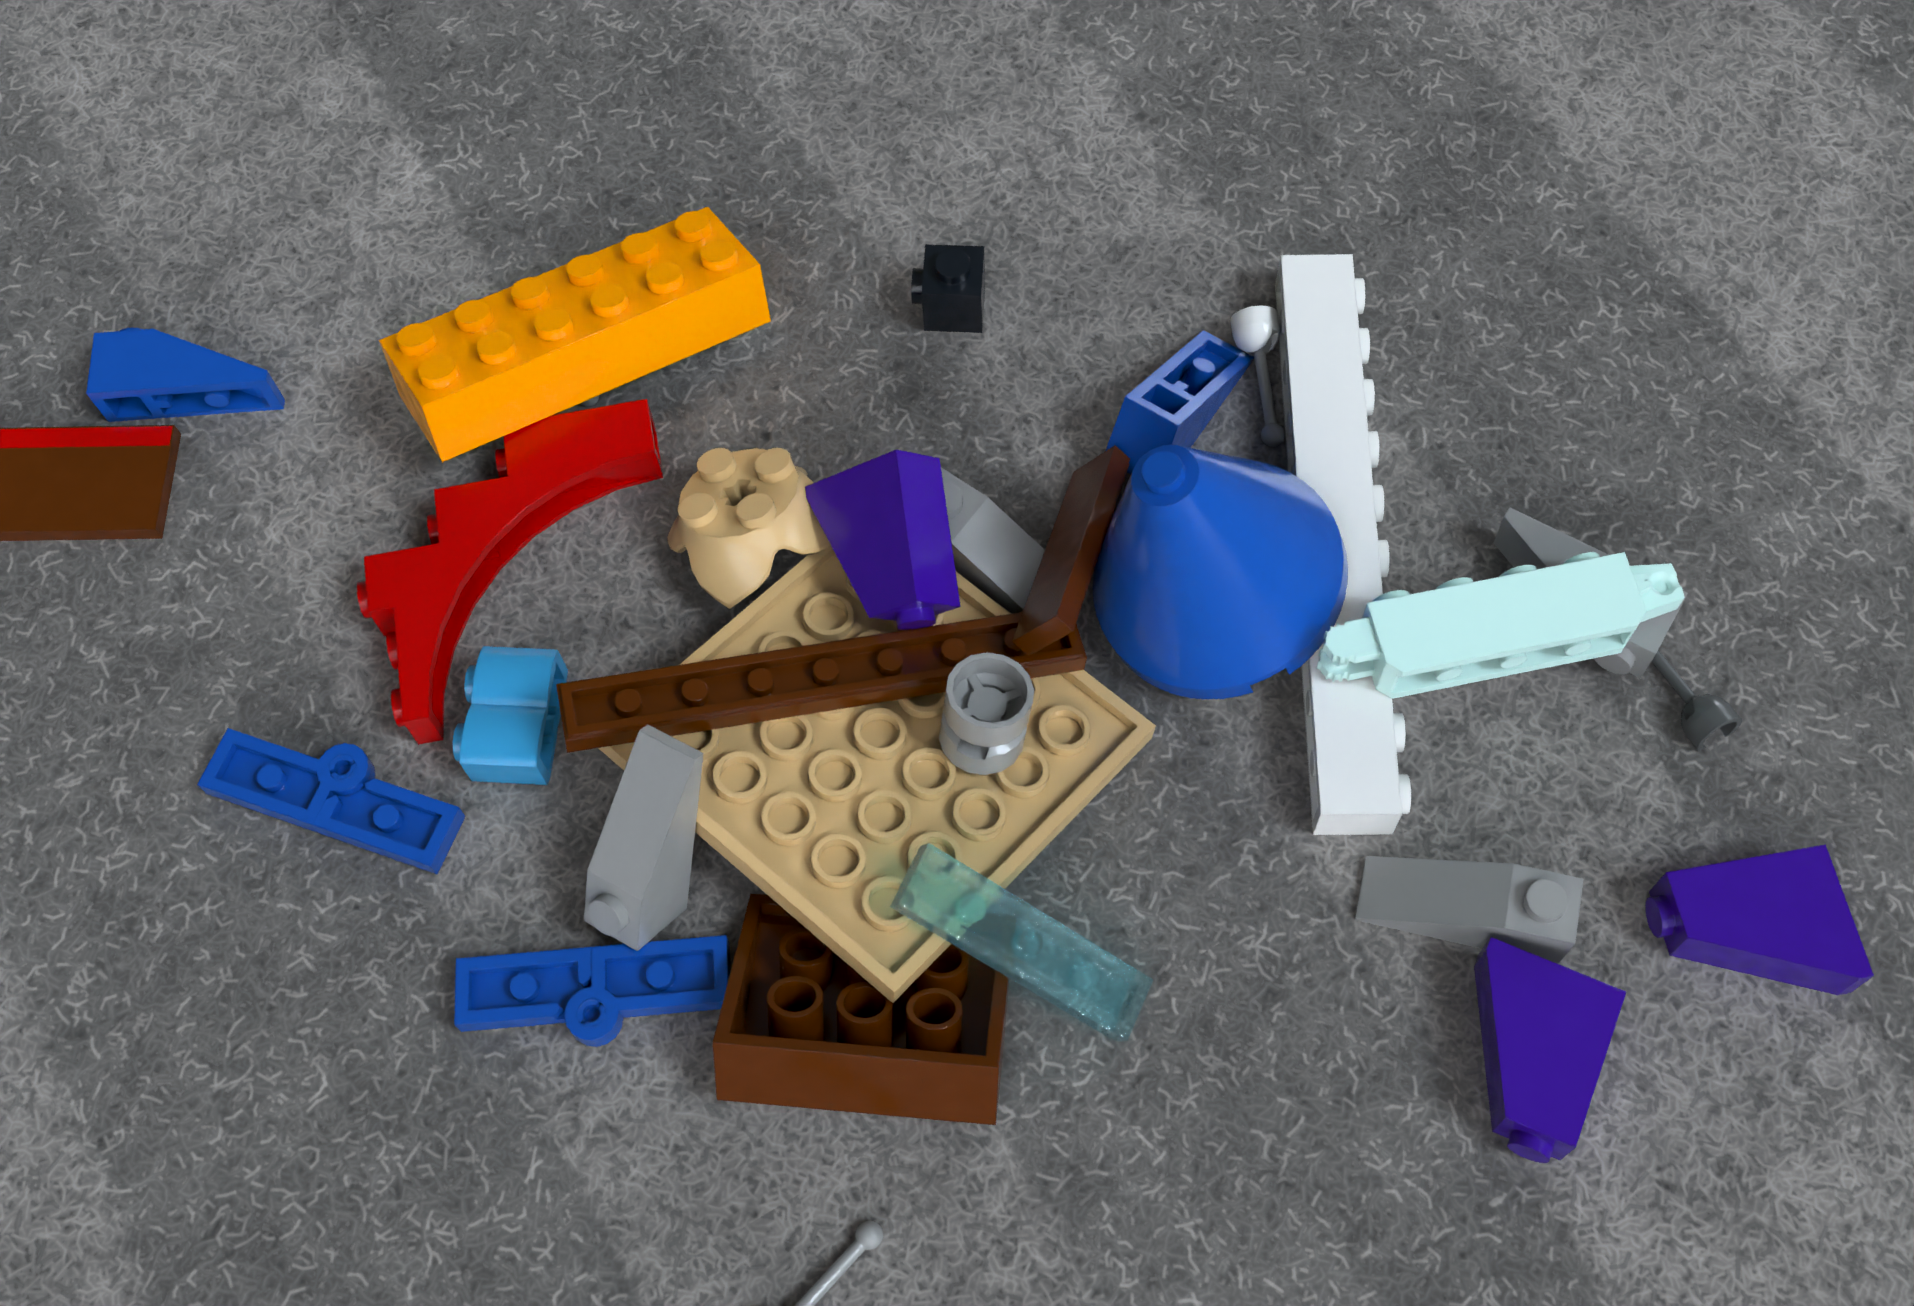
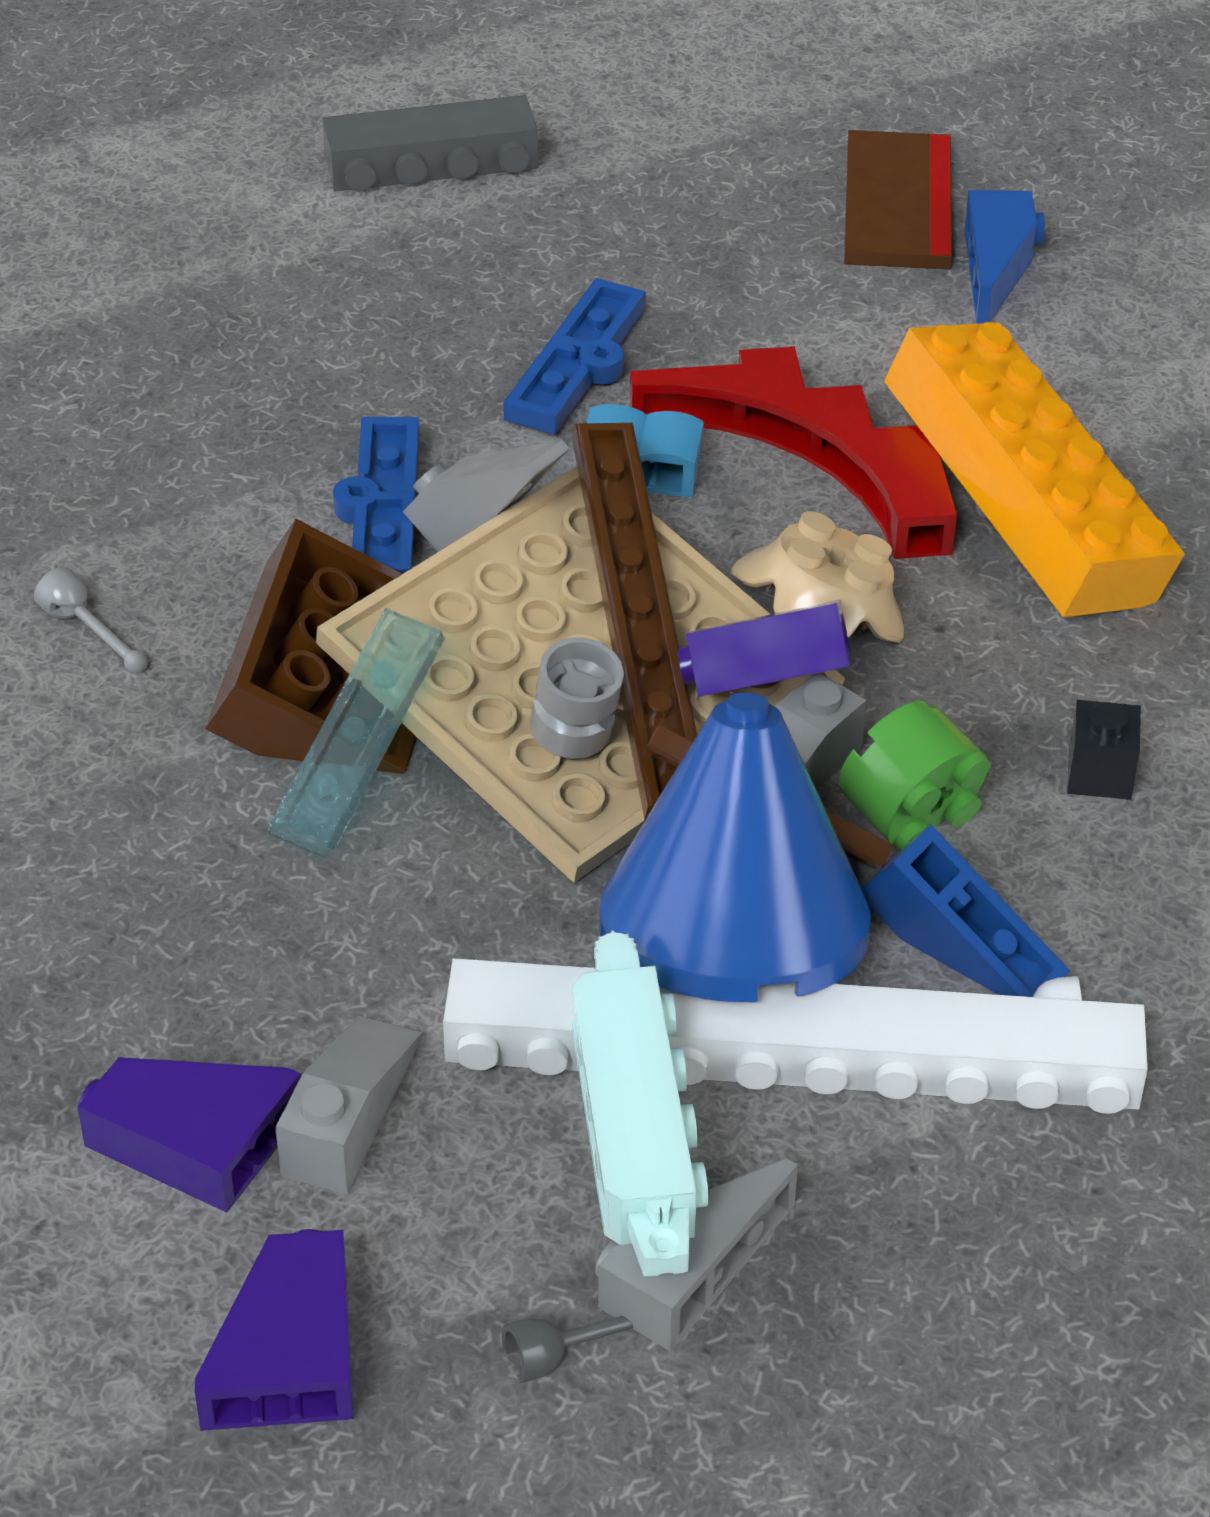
camera: 90 degrees right, 20 degrees down
(1016, 416) = (915, 773): none -> bright green brick

